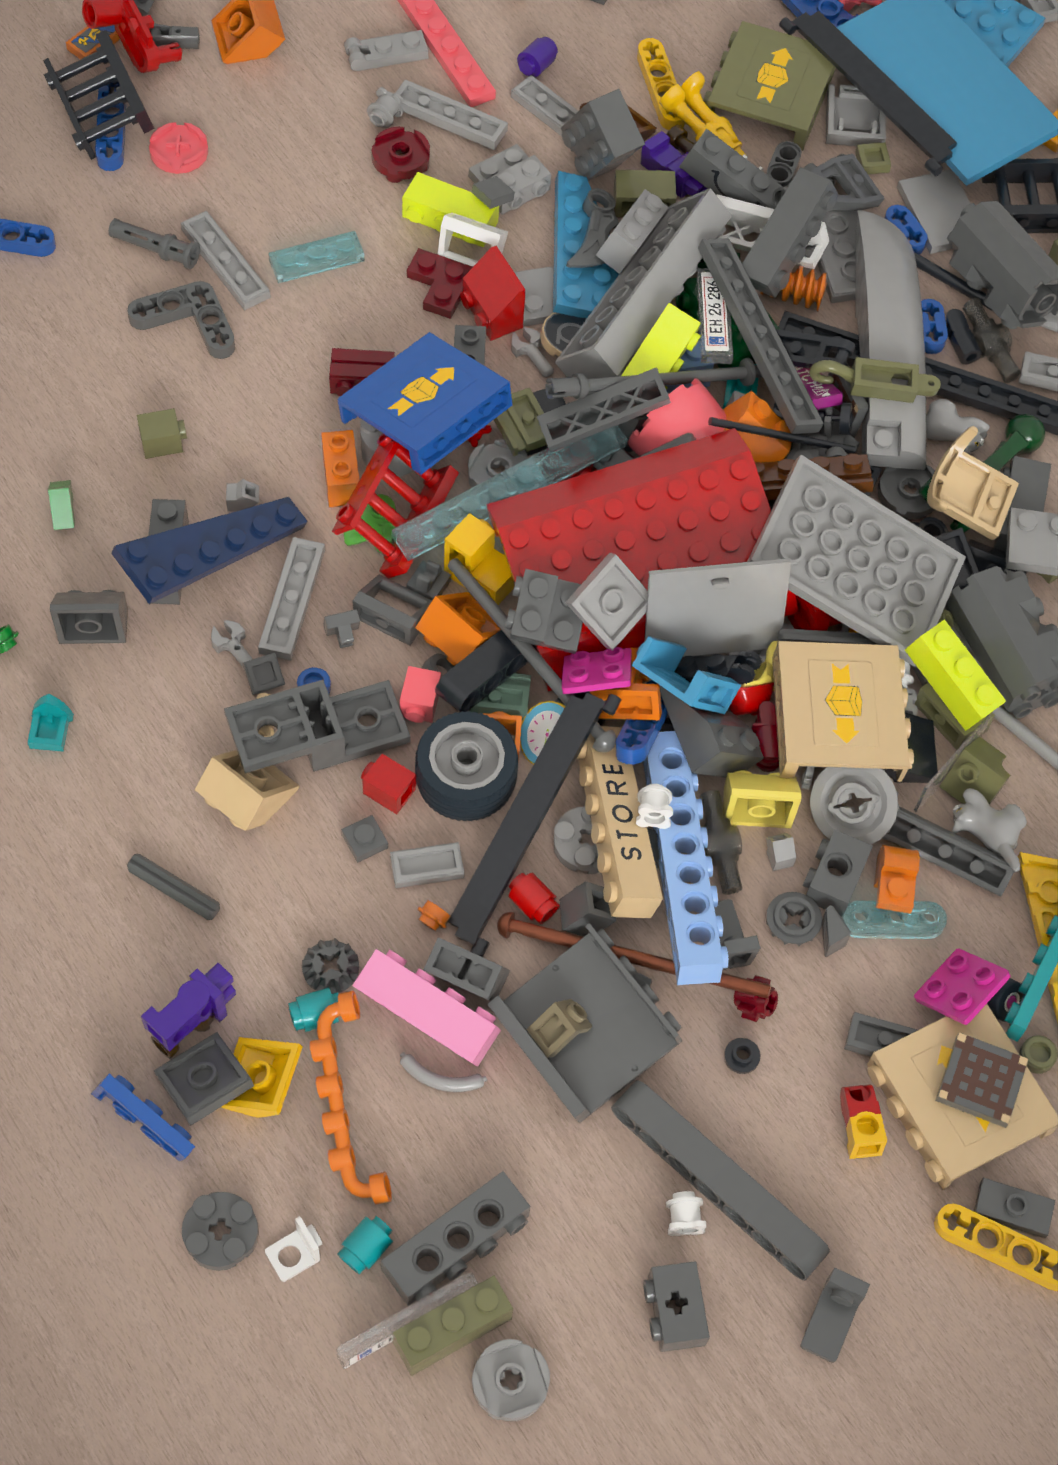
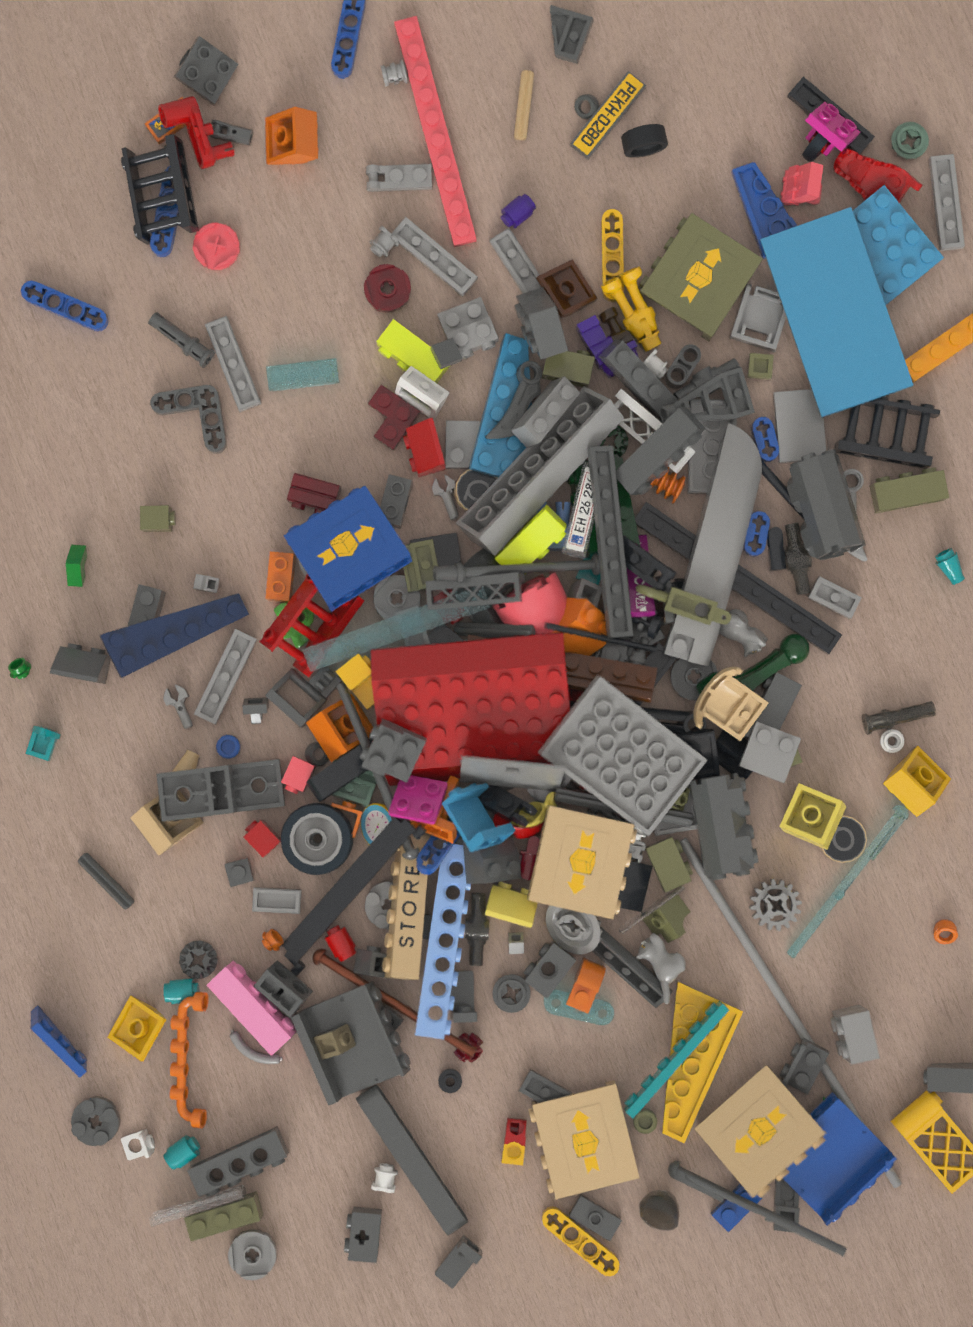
camera: 15 degrees right, 25 degrees up
(191, 1009) = (108, 974): dark purple hips -> none
(203, 1078) = (101, 1022): dark grey plate -> none
(263, 673) = (194, 733): dark grey tile -> none
(610, 601) = (435, 758): light grey plate -> none
(654, 806) = (430, 911): white brick -> none
(834, 931) = (534, 1011): dark grey slope -> none
(876, 87) = (777, 306): black piece -> none
(955, 675) = (667, 856): neon yellow brick -> none
(966, 985) = (609, 1072): dark pink plate -> none
(982, 1080) = (595, 1141): tile -> none

